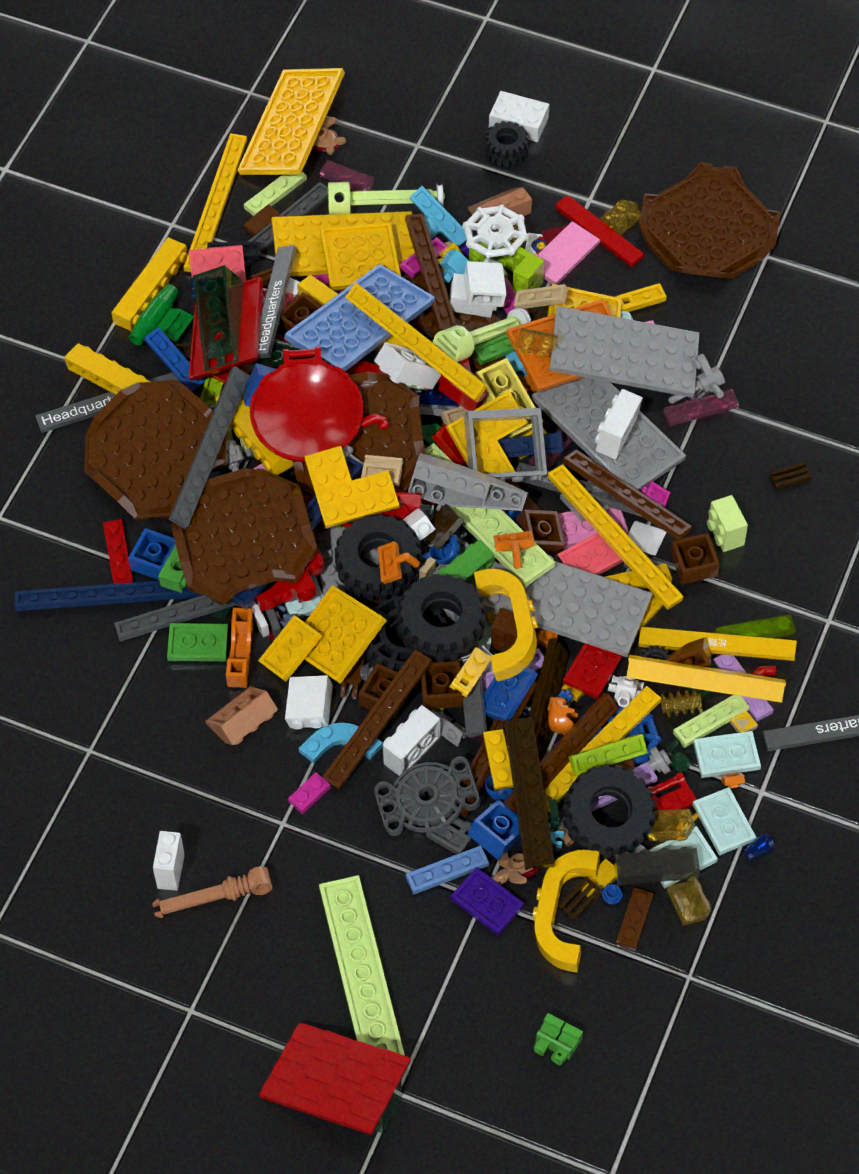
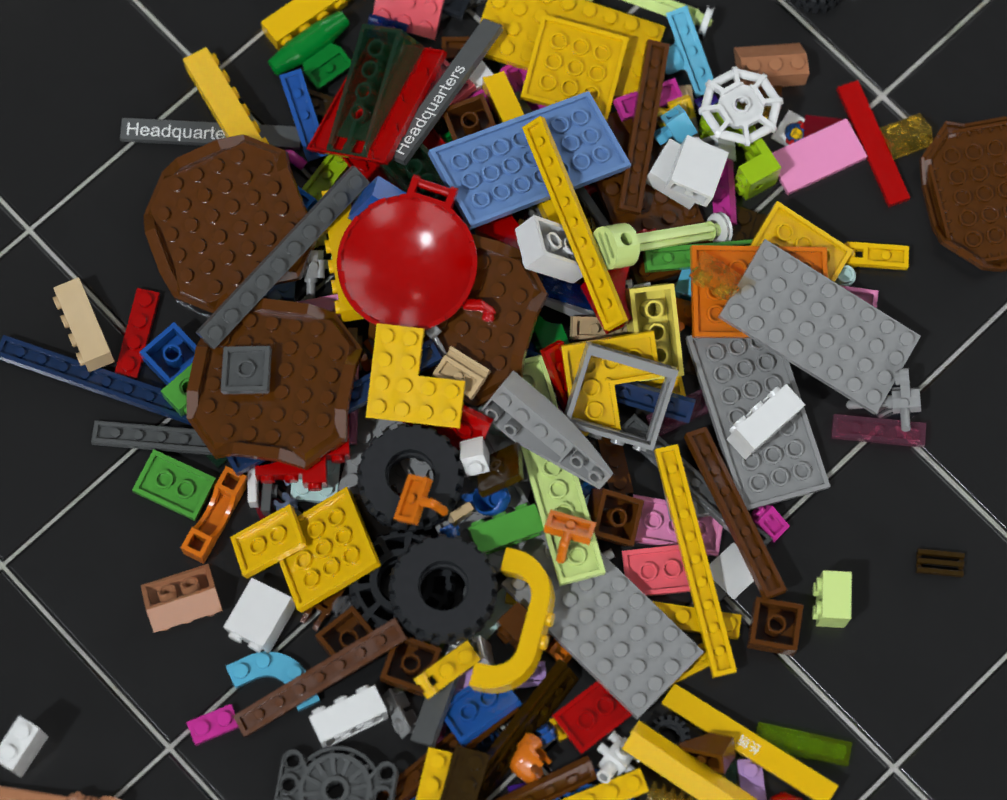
camera: 20 degrees right, 15 degrees up
(74, 559) = (83, 325): none -> tan brick
(220, 528) = (246, 370): none -> dark grey plate
(541, 296) = (755, 214): tan plate -> none

